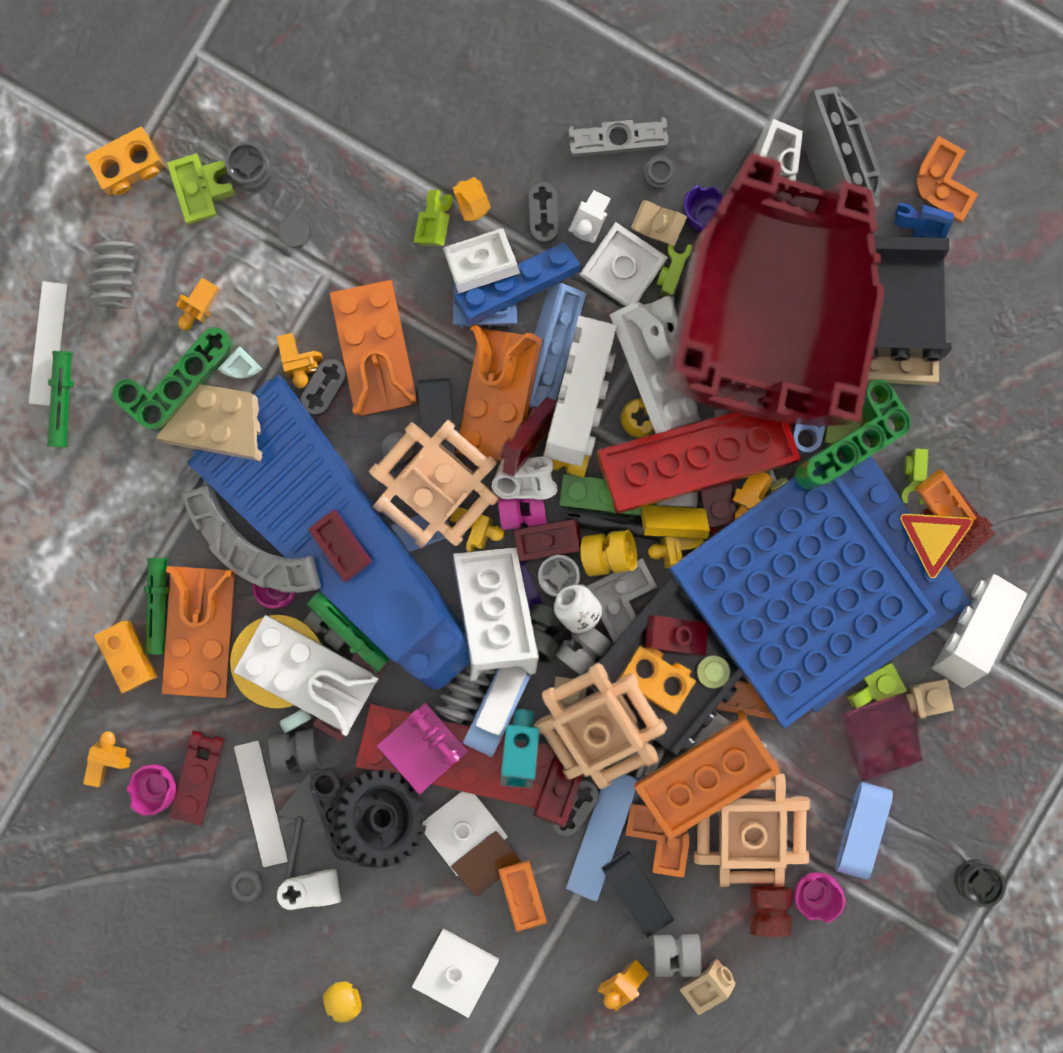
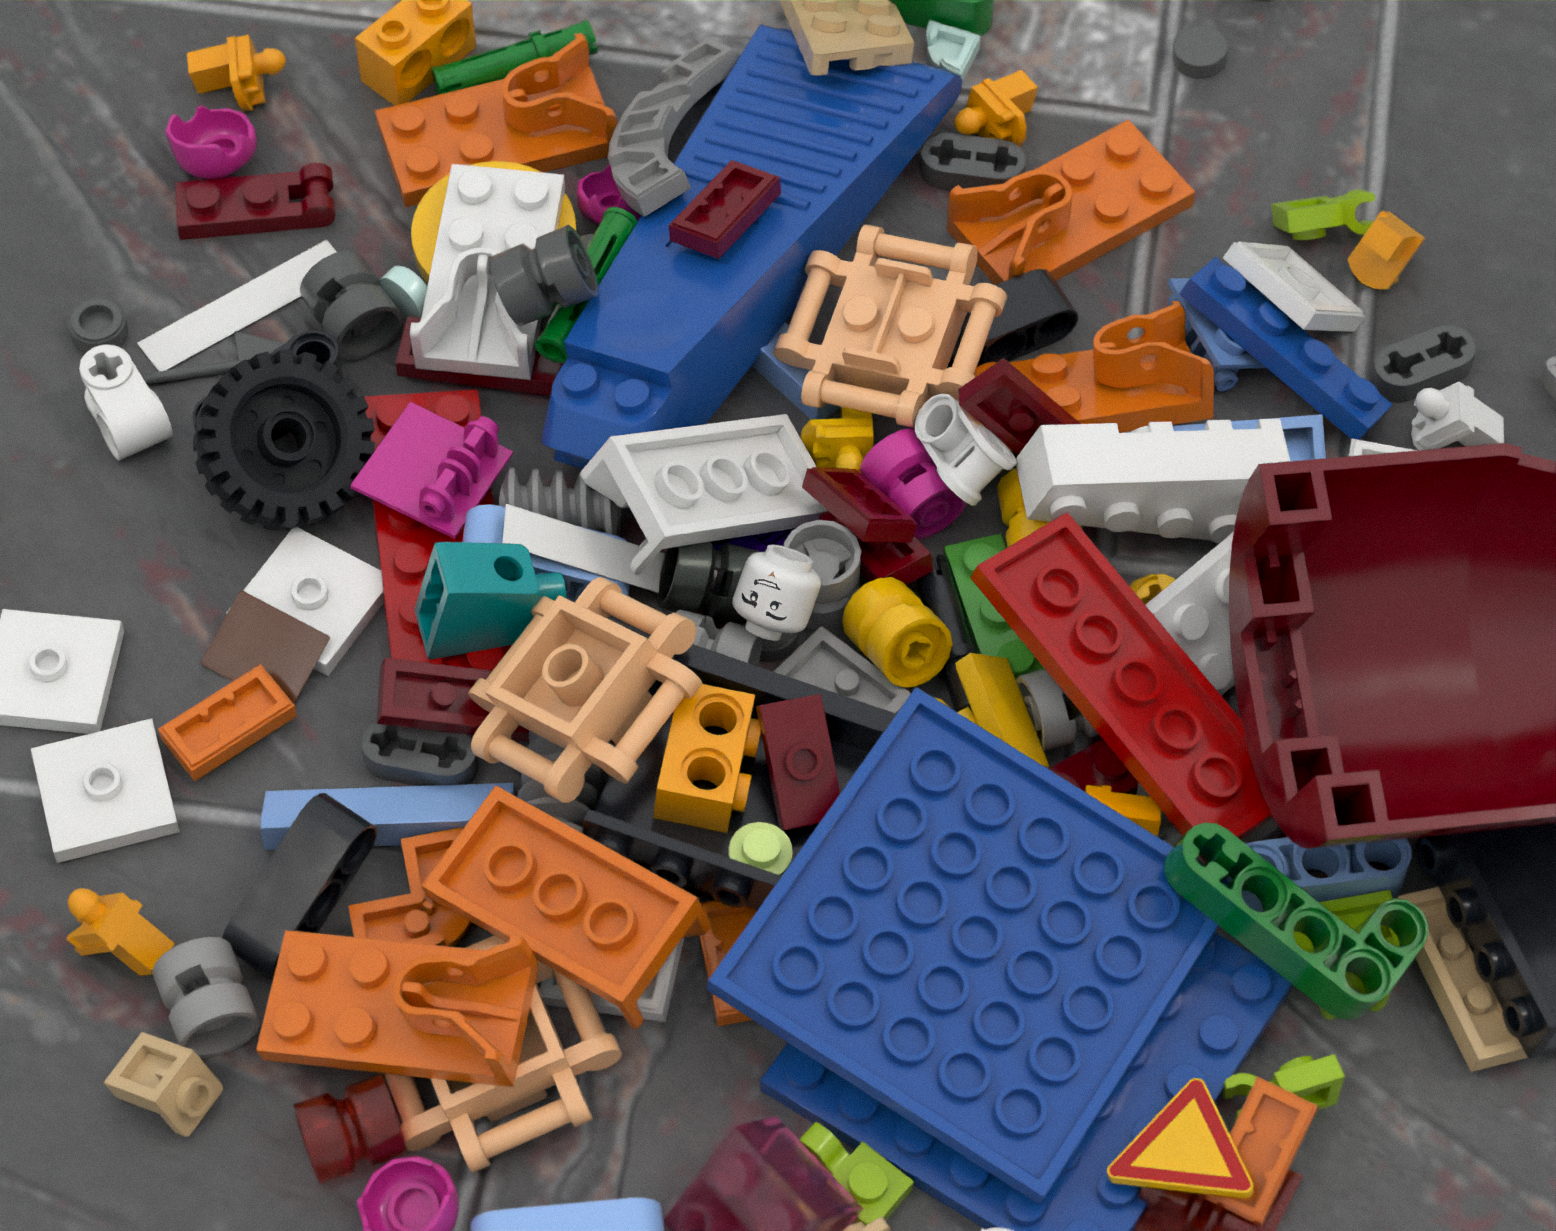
camera: 70 degrees right, 30 degrees down
(351, 662) = (539, 277): none -> dark grey wheel
(534, 543) = (859, 505): none -> dark red plate
(535, 966) = (104, 790): none -> white plate
(729, 872) = (400, 1007): none -> orange plate

